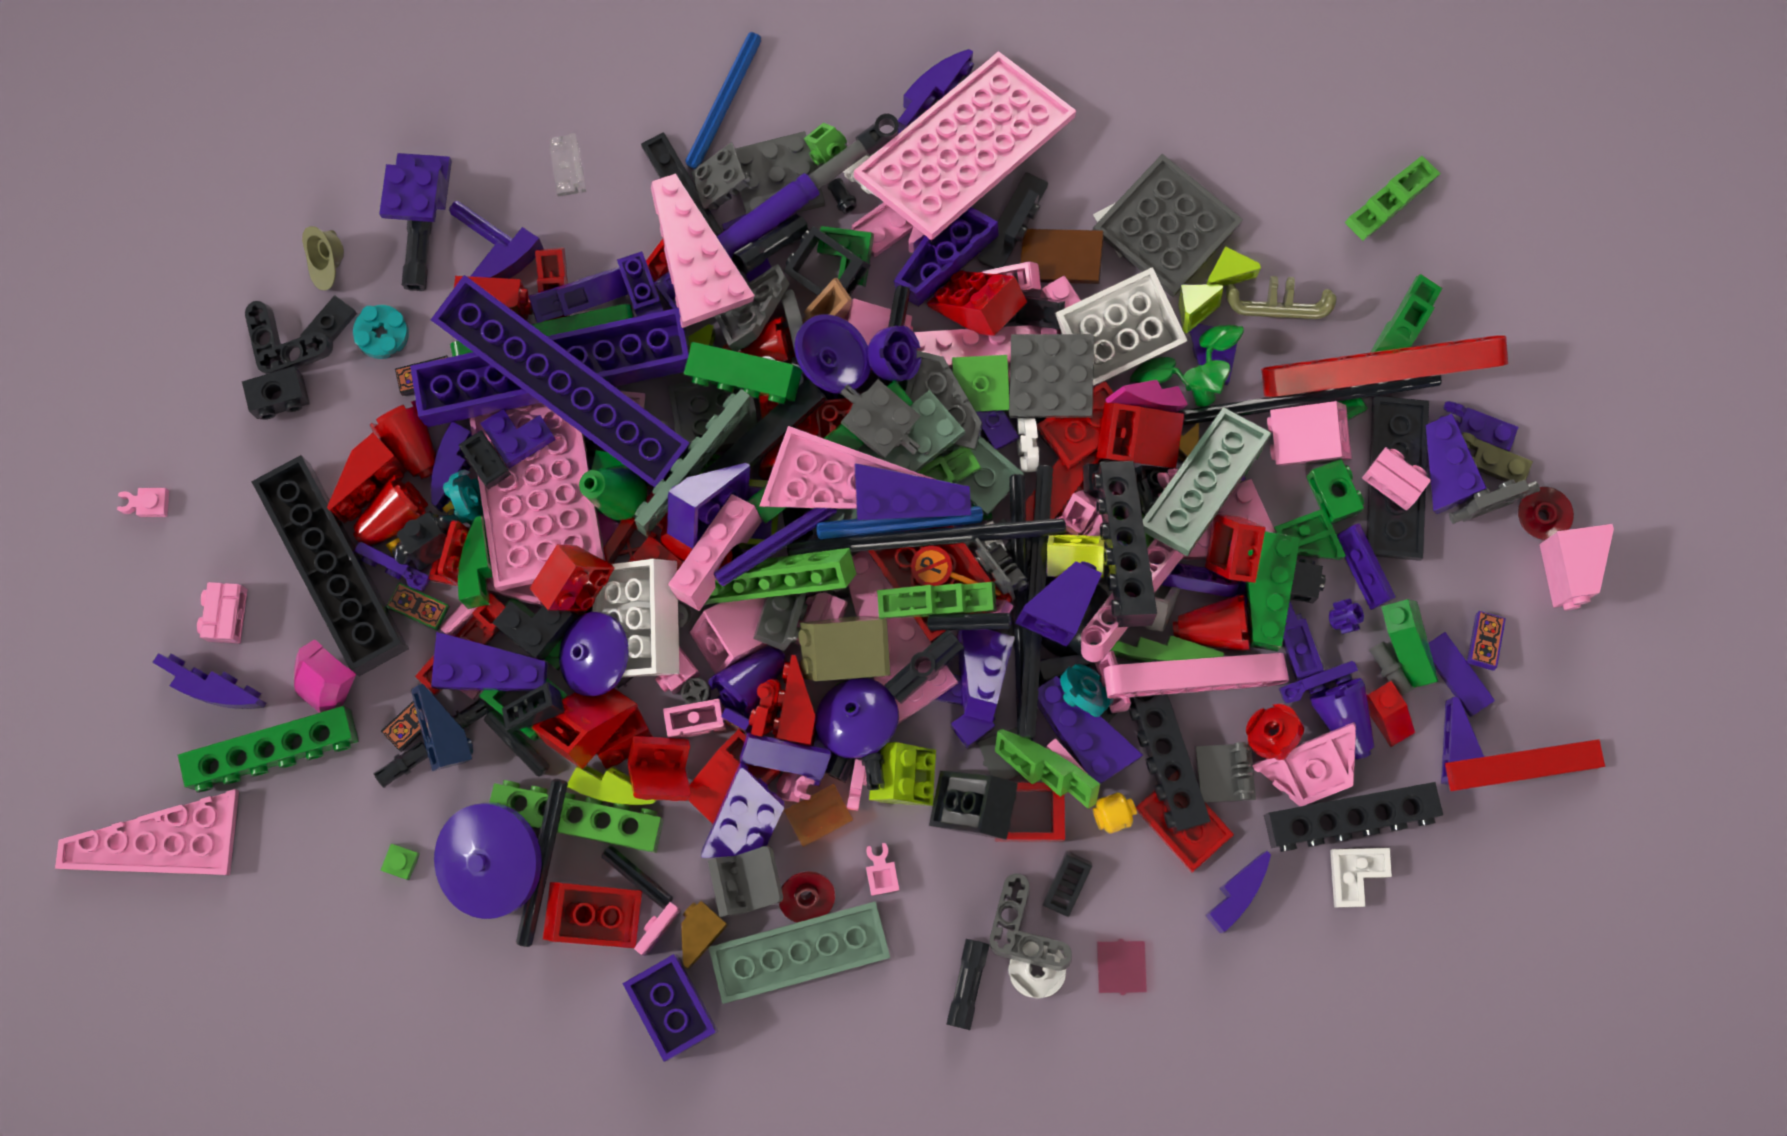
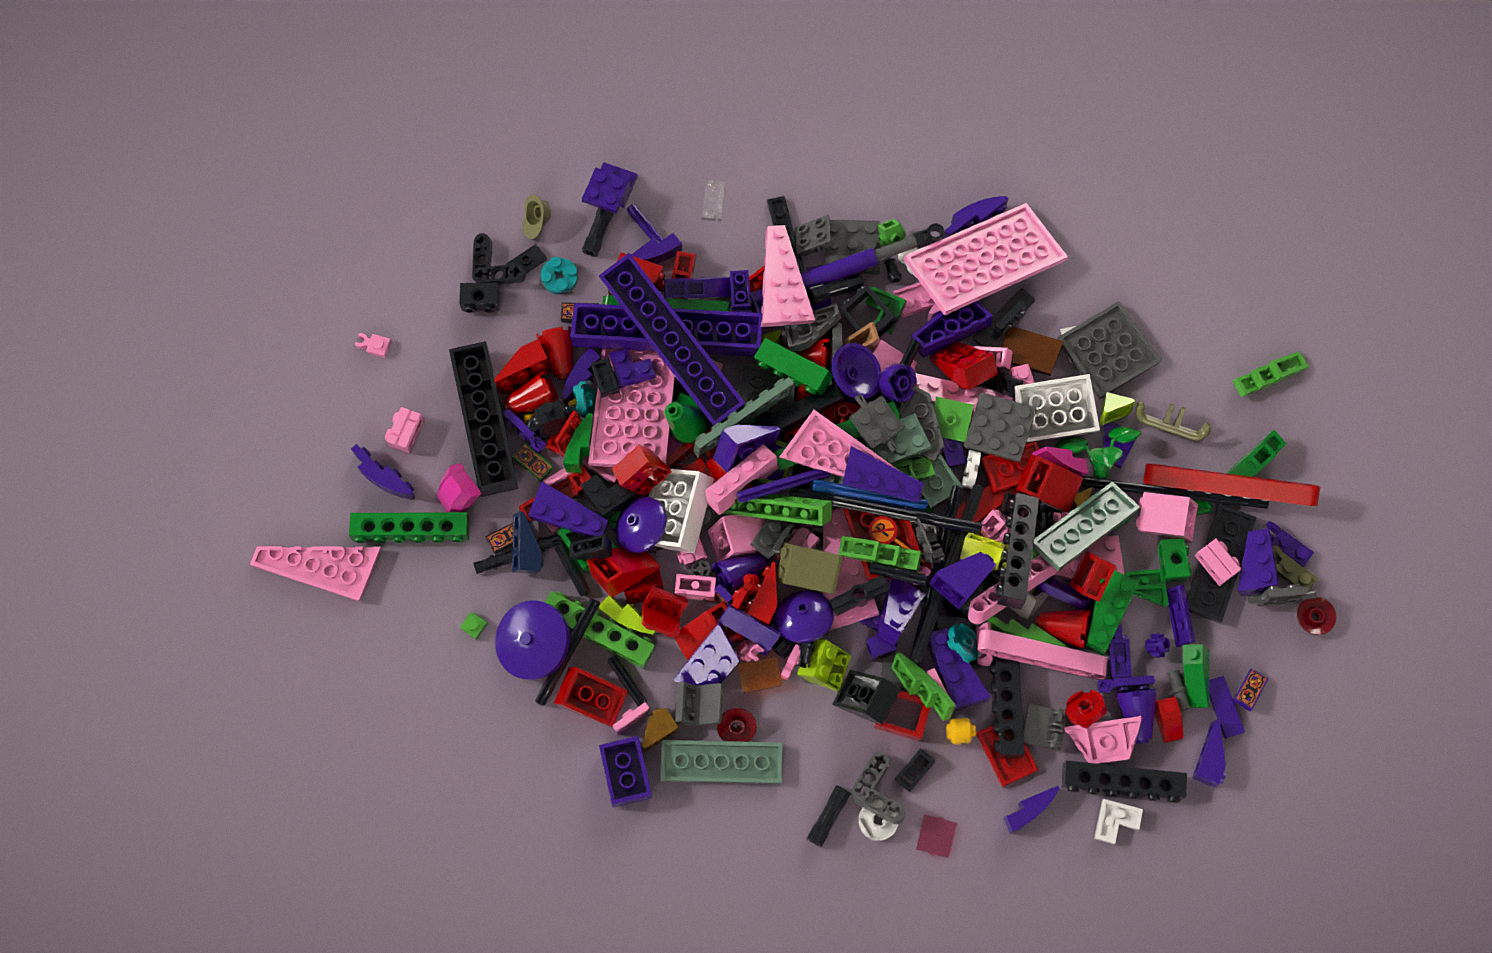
camera: 15 degrees right, 5 degrees down
(723, 100) = (830, 186): blue axle -> none
(882, 875) = (791, 727): bright pink plate -> none
(1233, 269) = (1146, 391): lime slope -> none
(1307, 581) = (1136, 614): black brick -> none
(1524, 765) = (1252, 780): red tile -> none
(1576, 564) = (1326, 654): bright pink slope -> none

